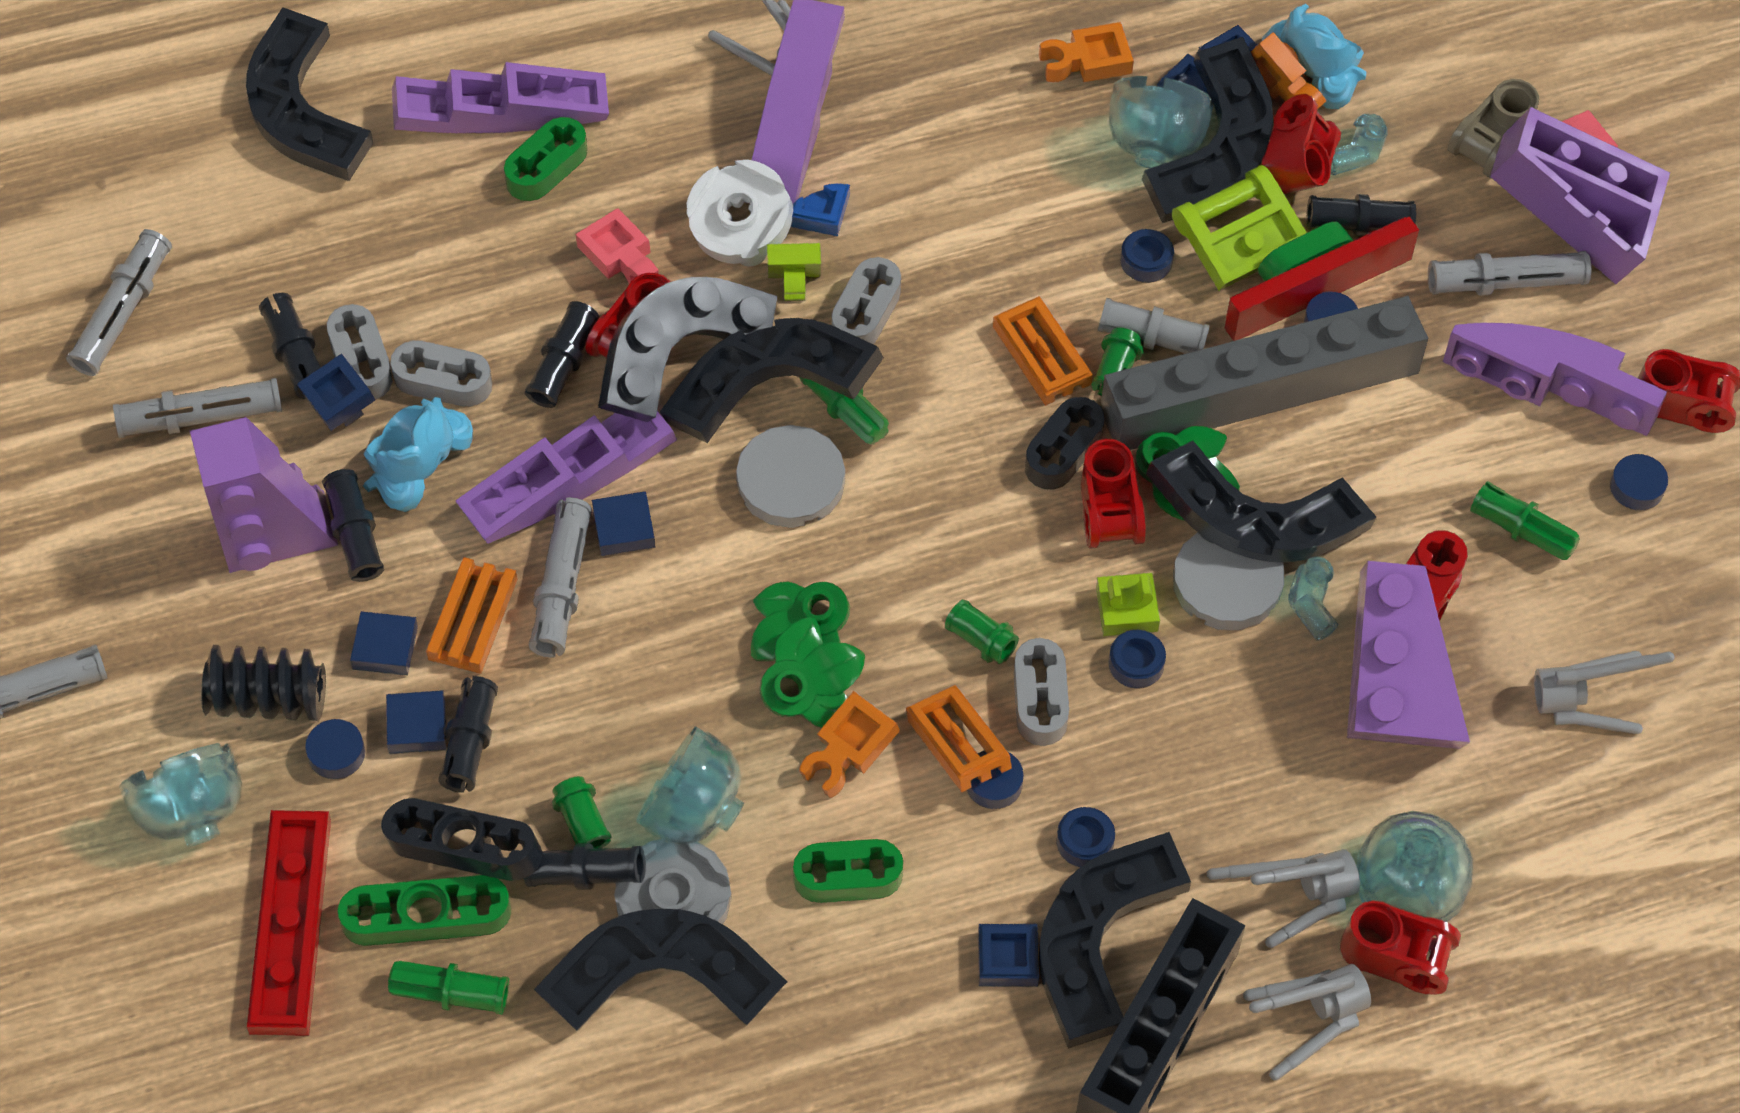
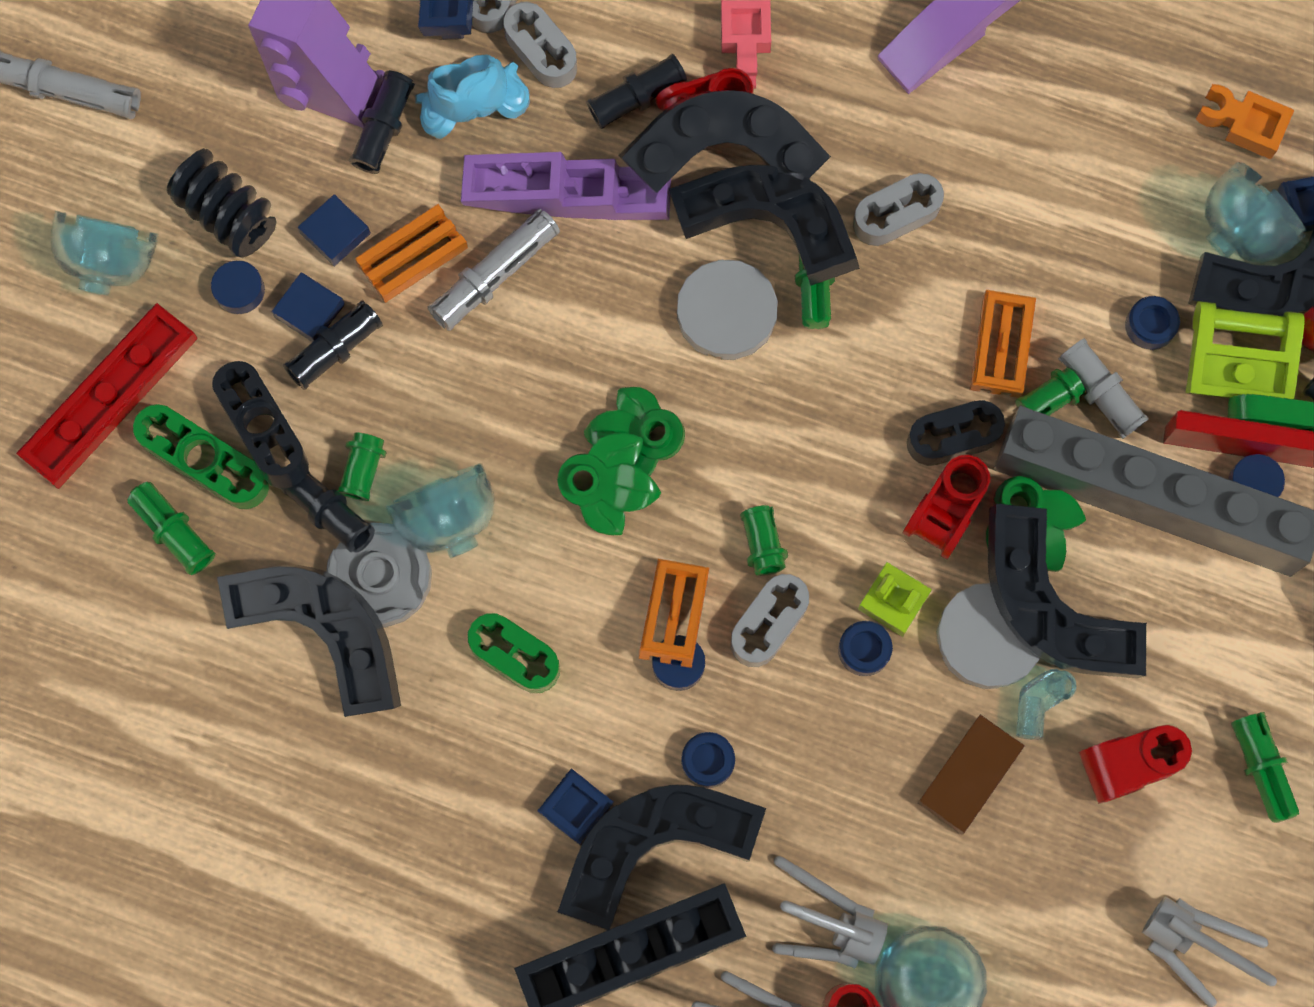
camera: 40 degrees right, 15 degrees up
(623, 523) = (575, 259): dark blue tile -> none
(732, 186) = (866, 93): white plate -> none
(794, 264) = (864, 141): lime tile -> none
(822, 210) = (929, 107): blue tile -> none
(852, 737) = (599, 555): orange plate -> none
(1306, 693) = (971, 774): none -> reddish brown tile
(1401, 663) = (1051, 816): medium lavender wedge -> none

